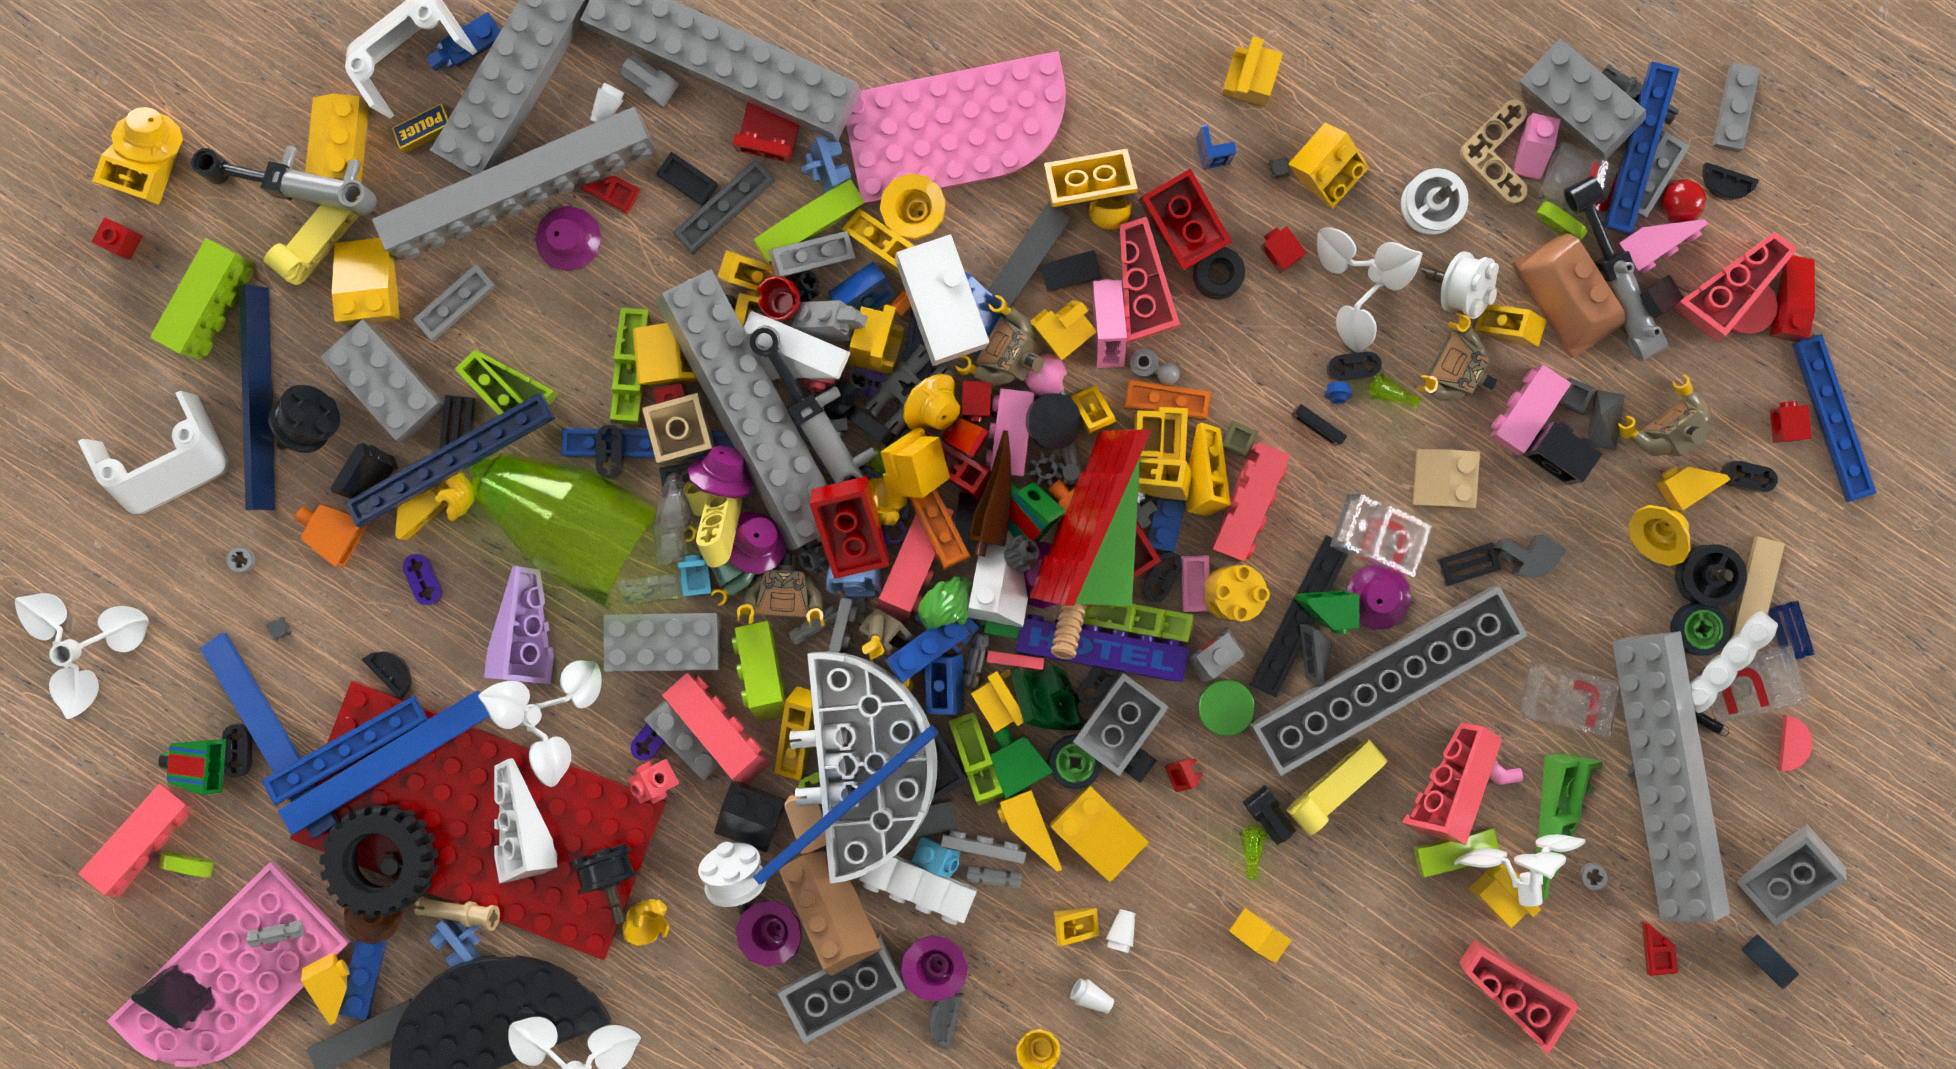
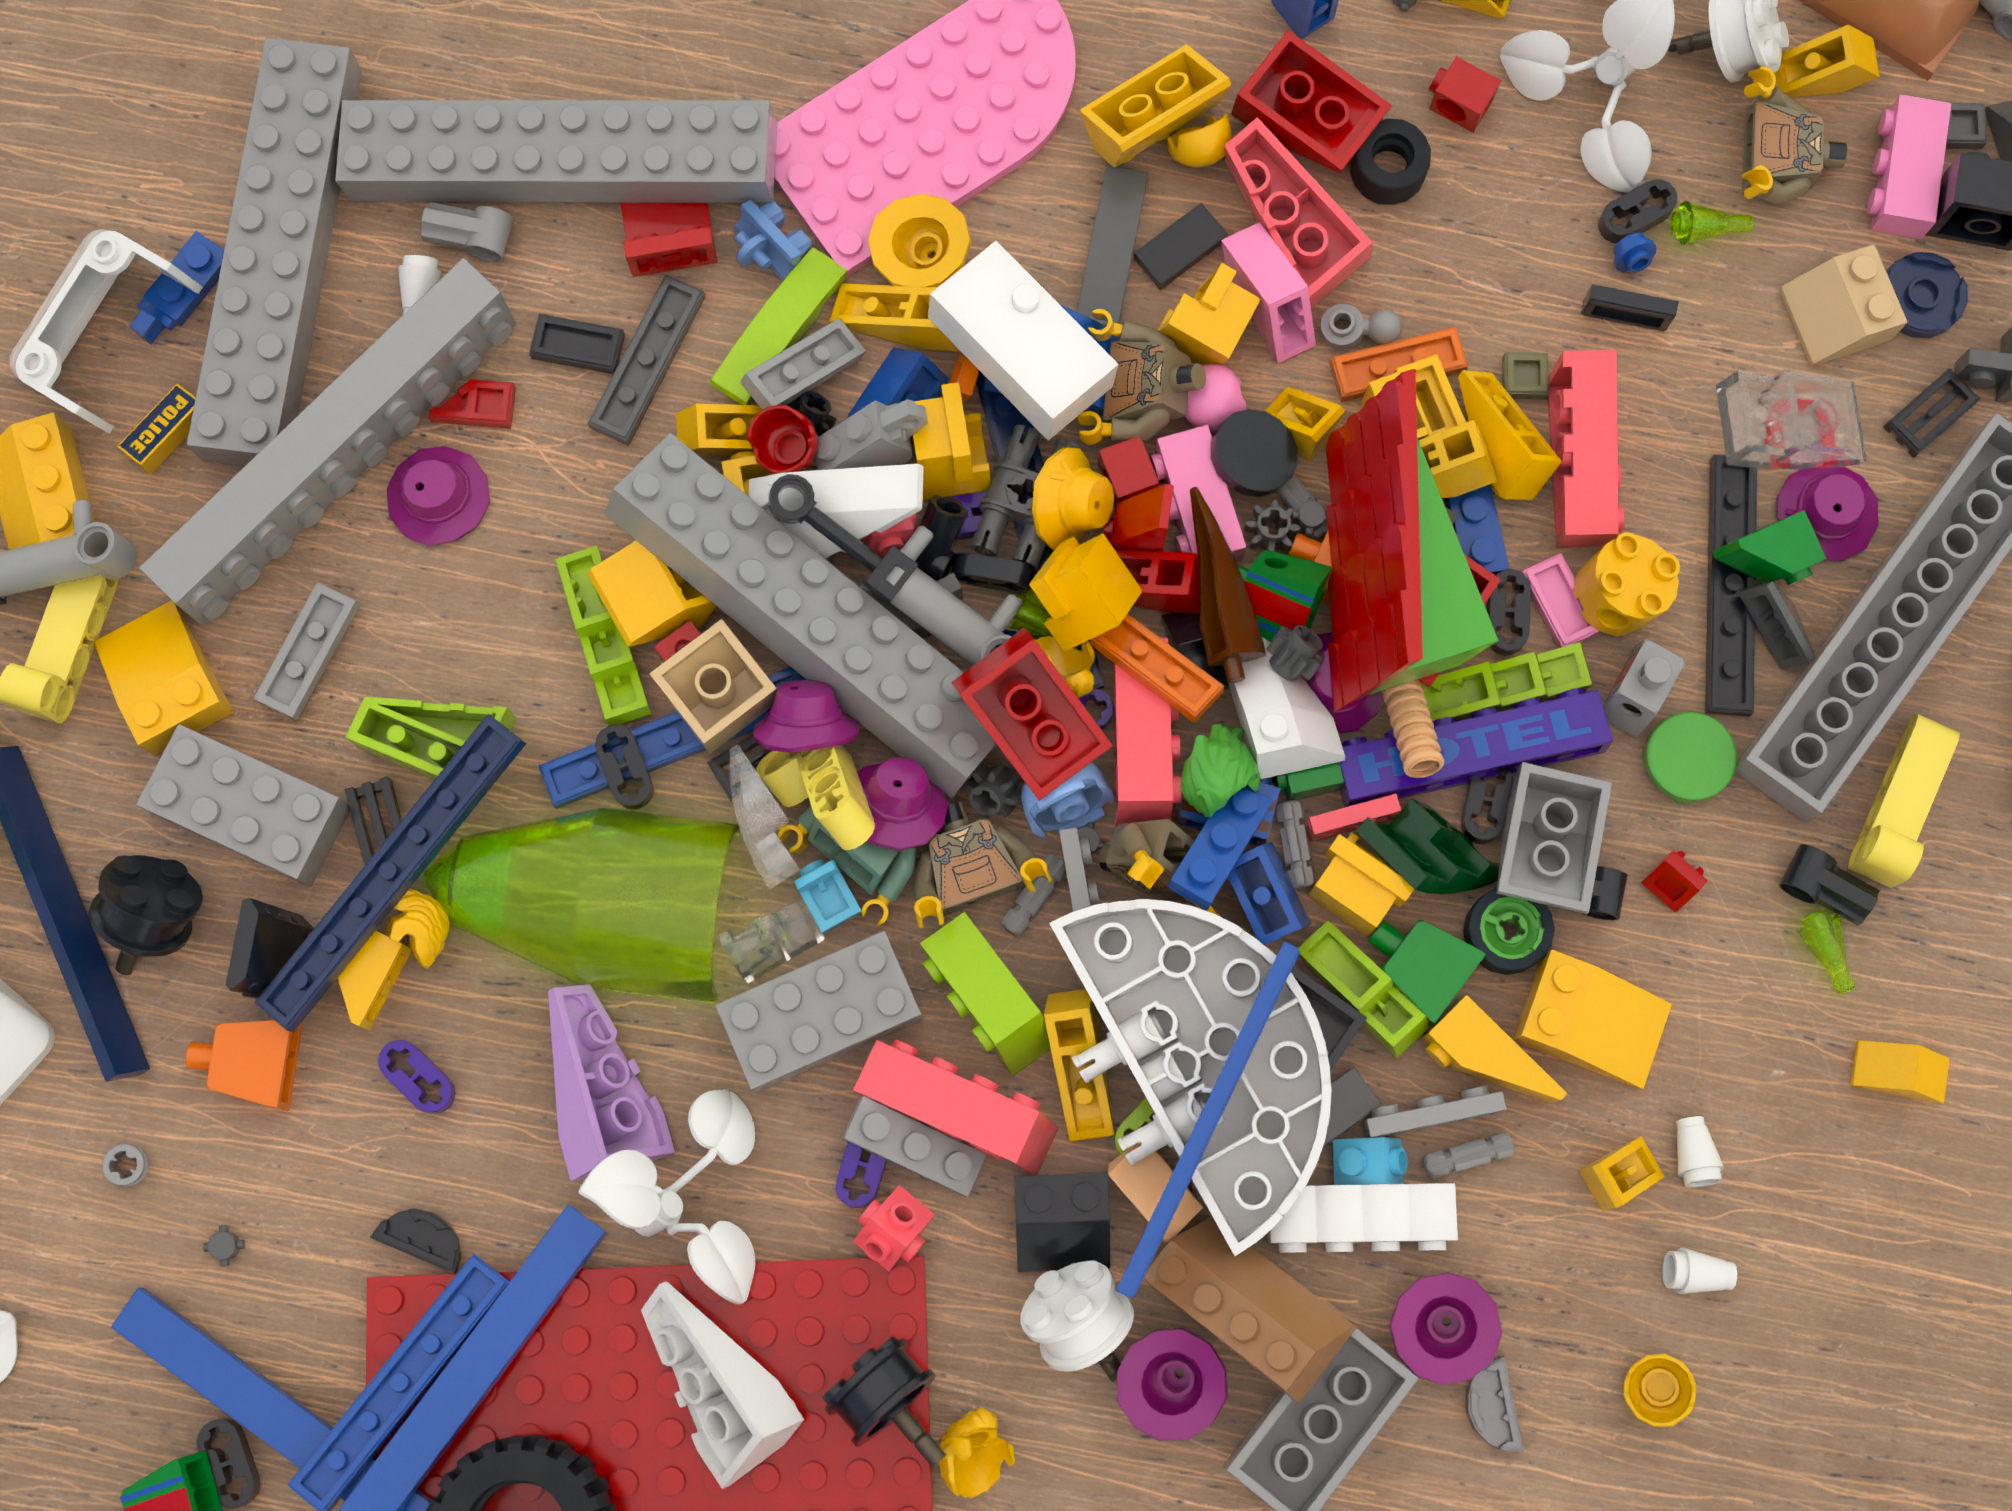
camera: 25 degrees left, 10 degrees down
(1501, 490) = (1928, 293): none -> dark blue tile

